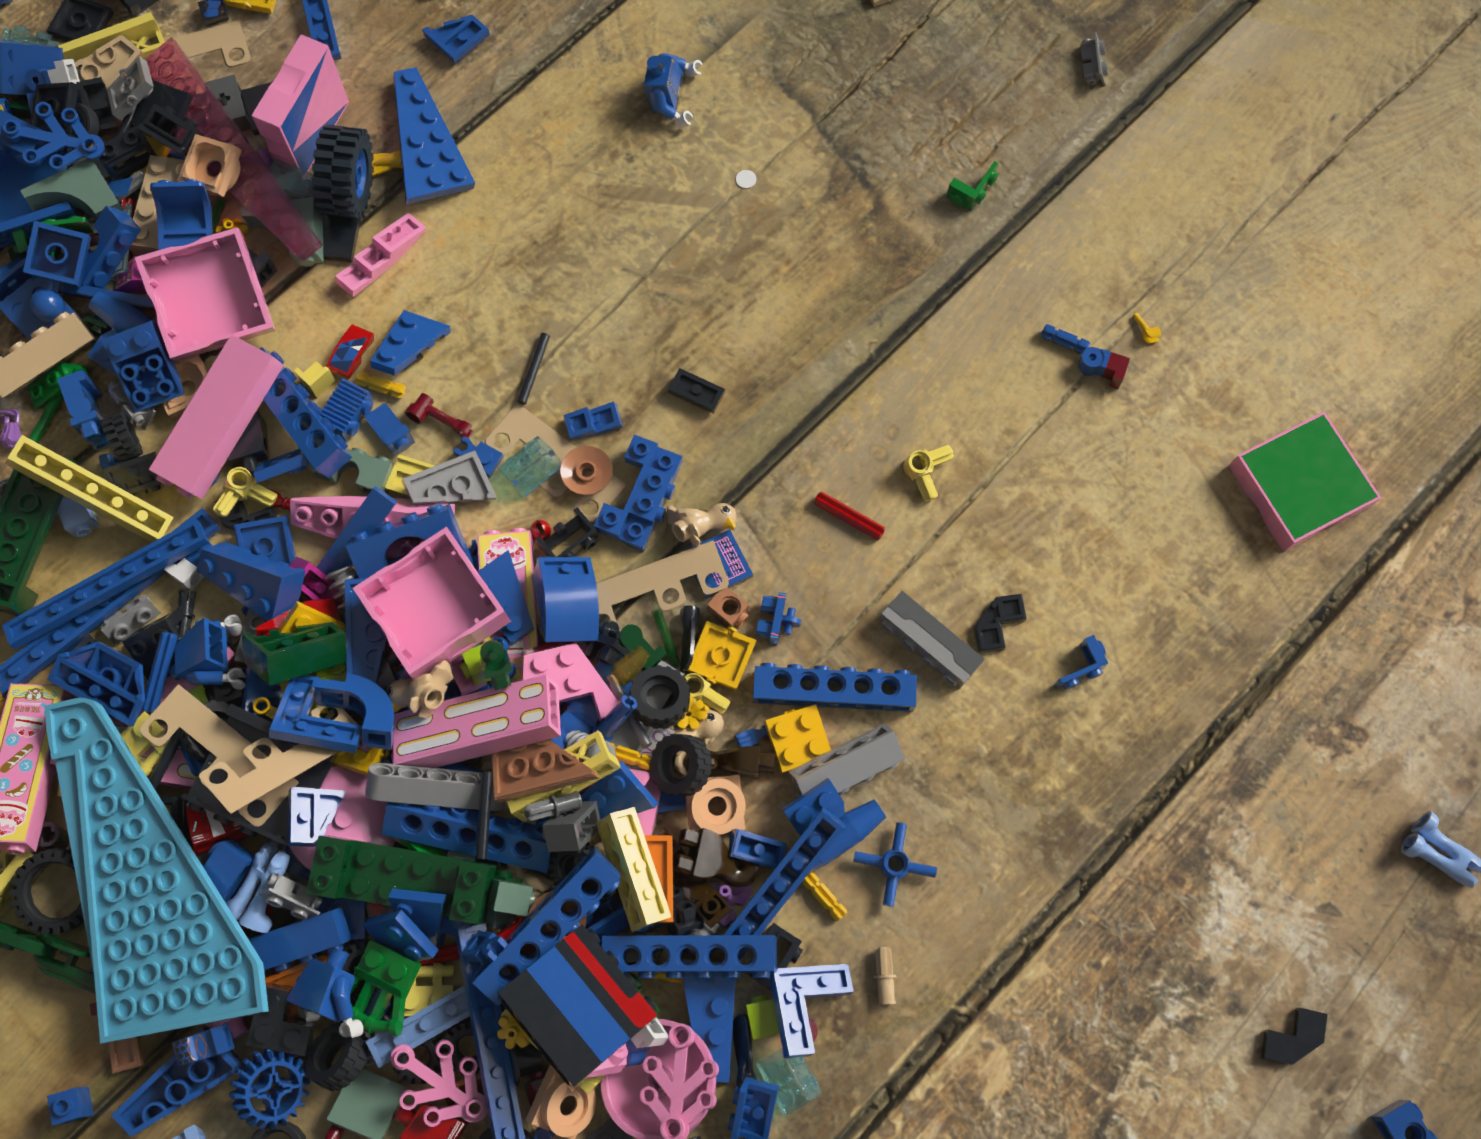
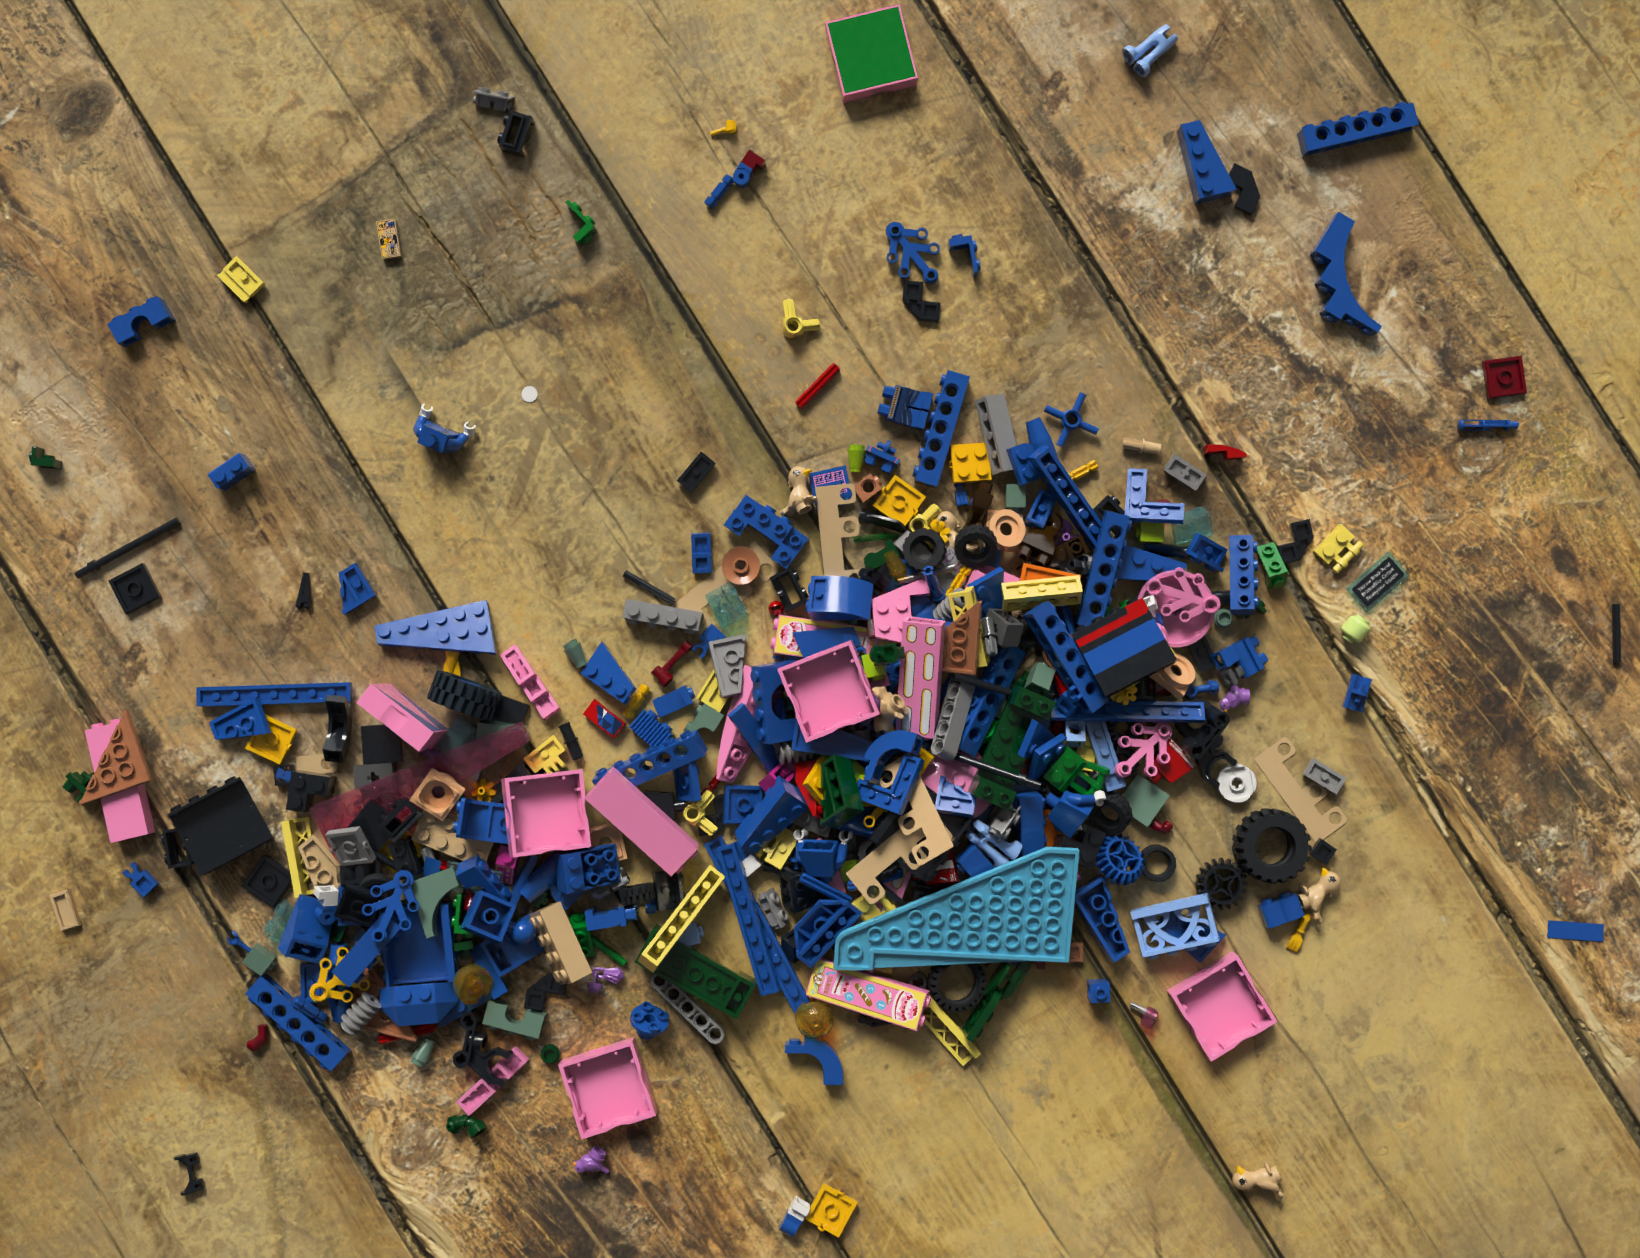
camera: 70 degrees left, 15 degrees up
(199, 32) = (304, 786): none -> black brick
(203, 1045) = (1085, 896): blue leg -> none
(204, 604) = (780, 851): none -> light yellow plate
(269, 55) = (339, 728): none -> black arch
(287, 294) = (546, 756): none -> light yellow hinge
(313, 318) = (571, 741): none -> black axle
(315, 378) = (620, 747): light yellow panel -> none
(355, 899) = (1020, 779): none -> black bar
(429, 297) = (574, 651): none -> sand green cone
(434, 976) = (1074, 740): none -> light blue brick
(499, 390) = (662, 615): none -> light grey brick
(765, 811) = (1014, 497): none -> sand green brick
(767, 585) = (856, 457): none -> lime cone
(854, 625) = (900, 407): none -> hips
(864, 1048) = (1184, 471): none -> light grey hinge
(908, 1111) = (1229, 453): none -> red slope
(930, 639) = (922, 353): piece -> none
(1061, 91) = (522, 134): none -> black window
(1063, 592) = (910, 250): none -> blue plant
(1307, 969) = (1203, 165): none -> blue wedge

